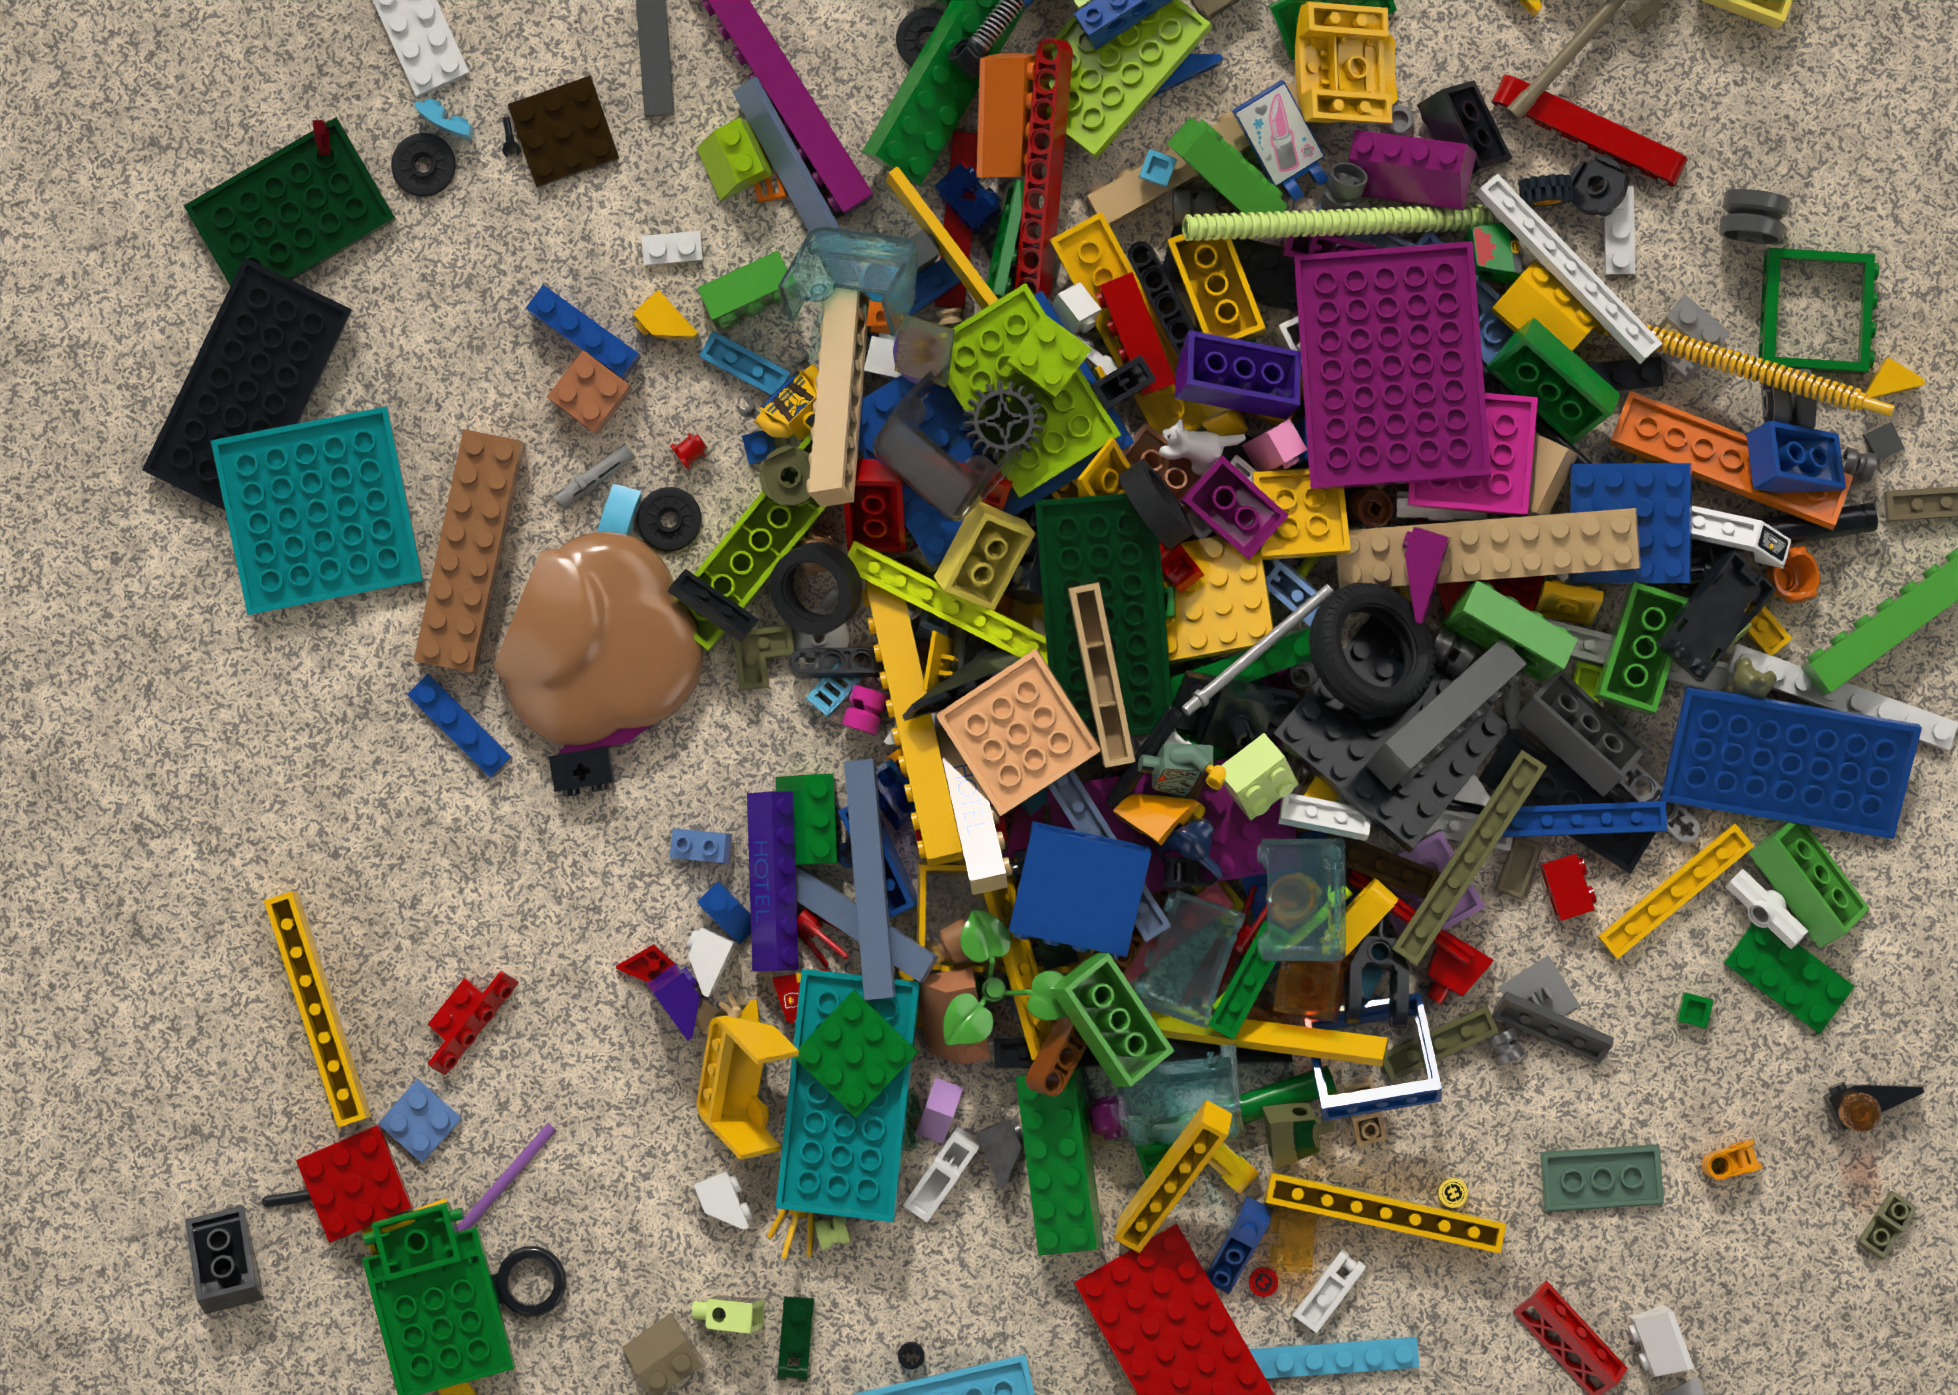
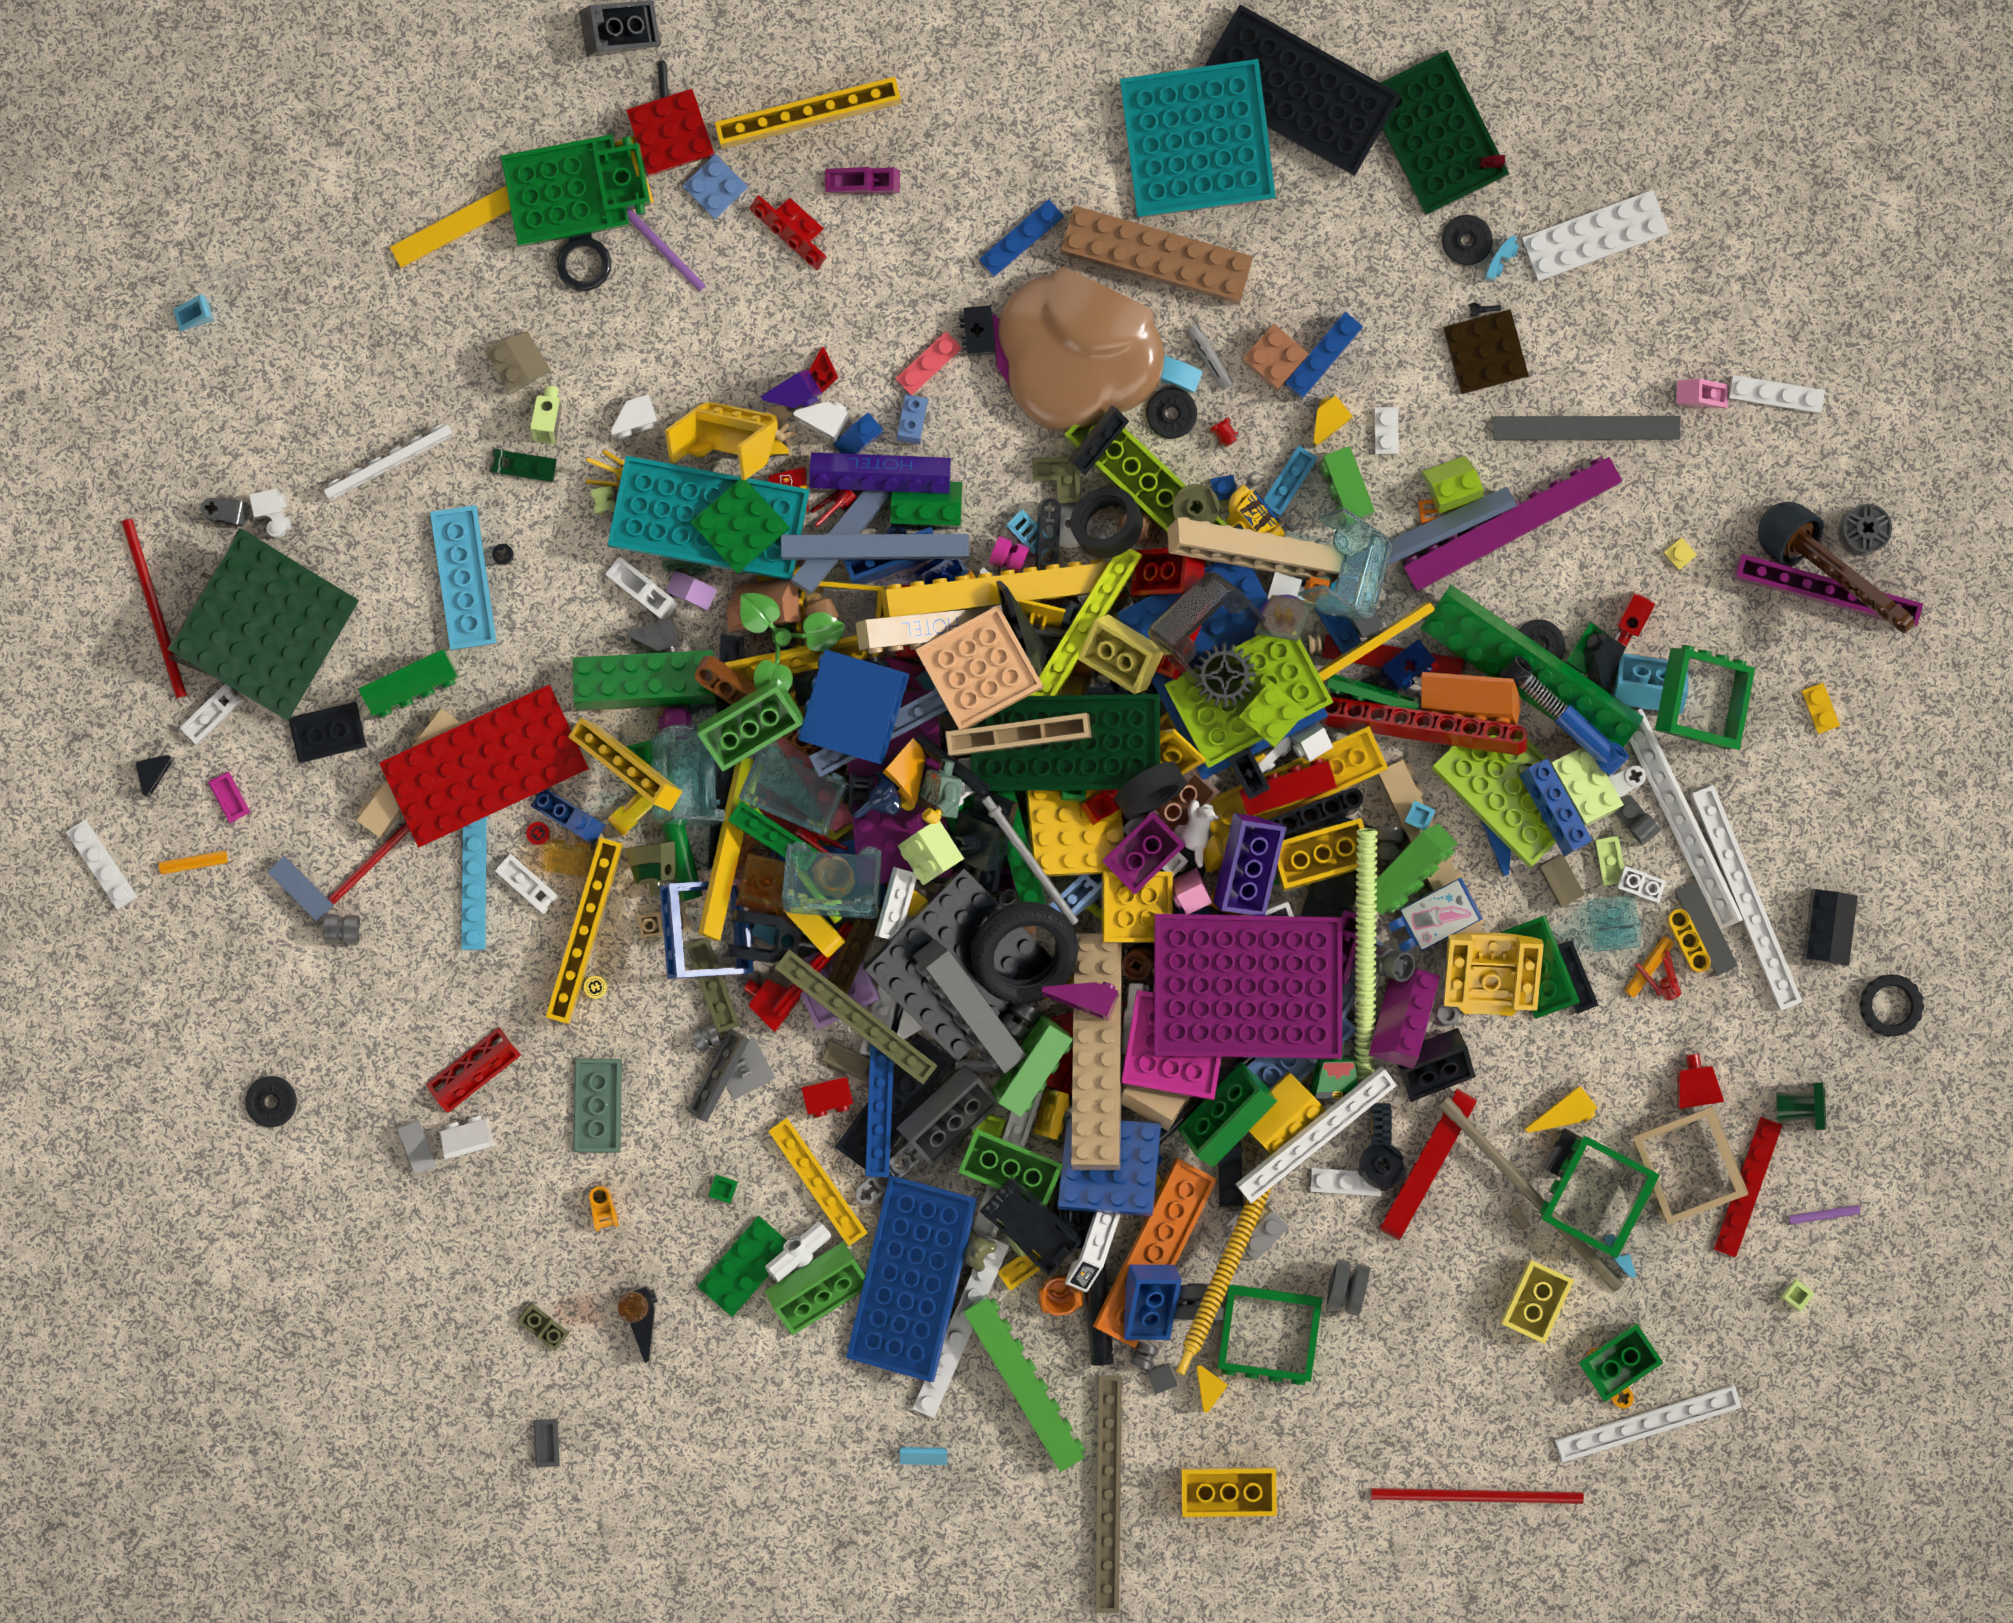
camera: 95 degrees right, 0 degrees up
(399, 932) = (862, 180): none -> magenta slope
(627, 831) = (928, 363): none -> coral plate

